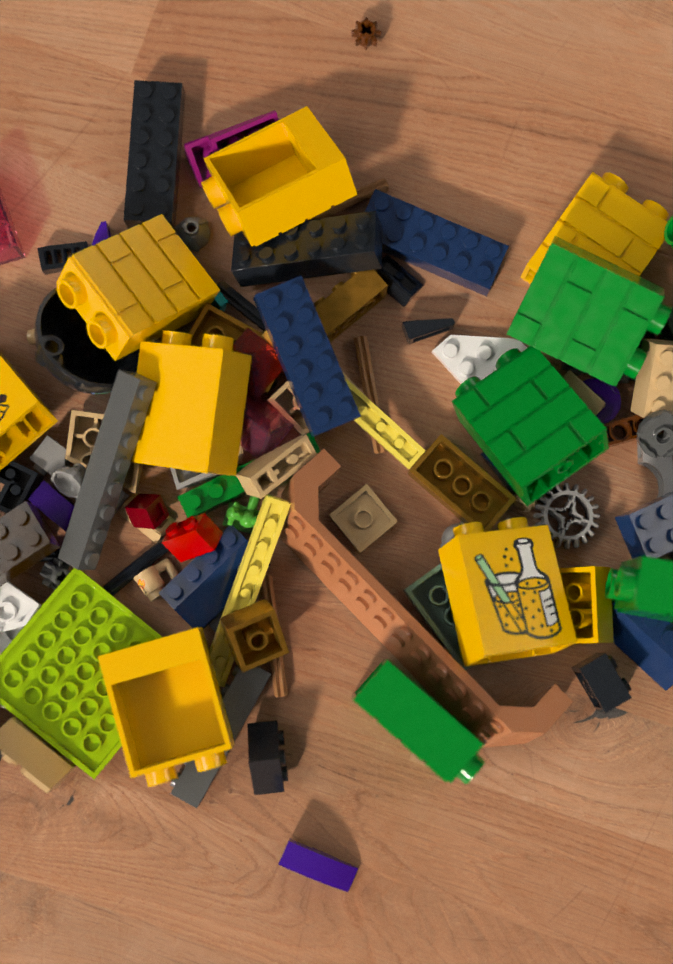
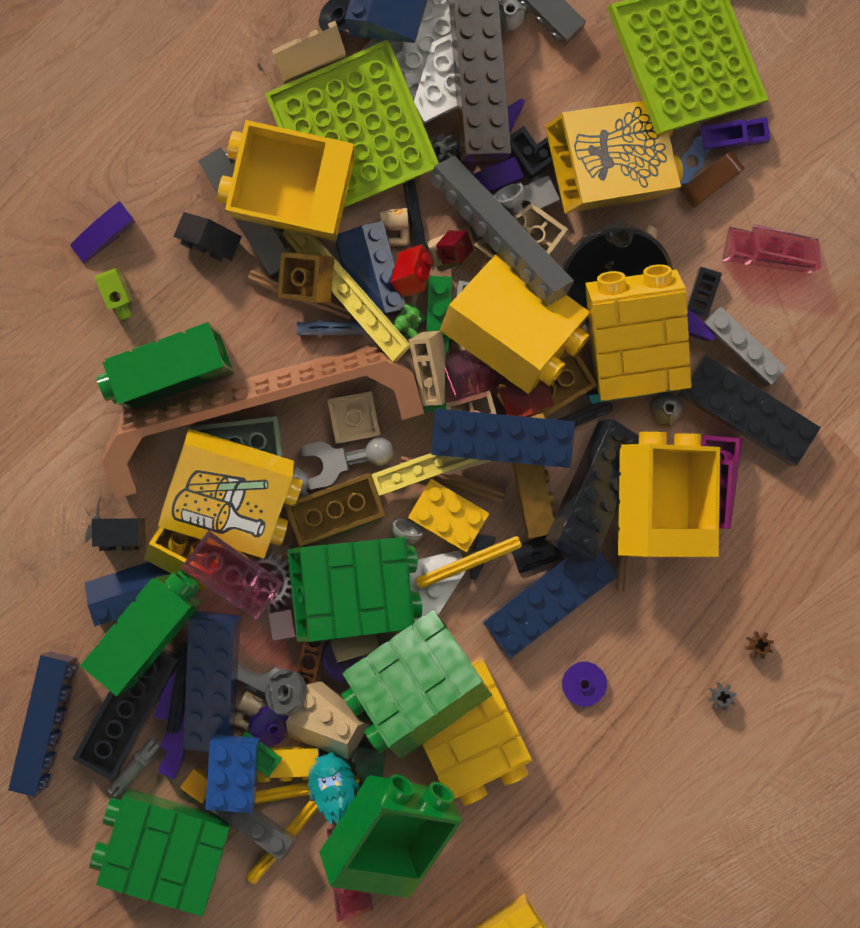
camera: 115 degrees right, 5 degrees up
(101, 171) = (740, 341): none -> light grey arch
(303, 614) = (329, 328): none -> medium blue pin
(361, 825) = (109, 283): none -> lime torso
(406, 377) = (448, 515): none -> yellow brick
(414, 511) = (336, 461): none -> light grey piece
(432, 47) = (727, 699): none -> dark grey gear
(441, 332) = (468, 562): none -> yellow axle
(442, 409) = (407, 529): none -> light grey piece
(488, 182) = (572, 683): none -> dark purple plate
(582, 545) = (232, 575): none -> clear pink slope
(597, 477) = (282, 624): none -> light grey panel

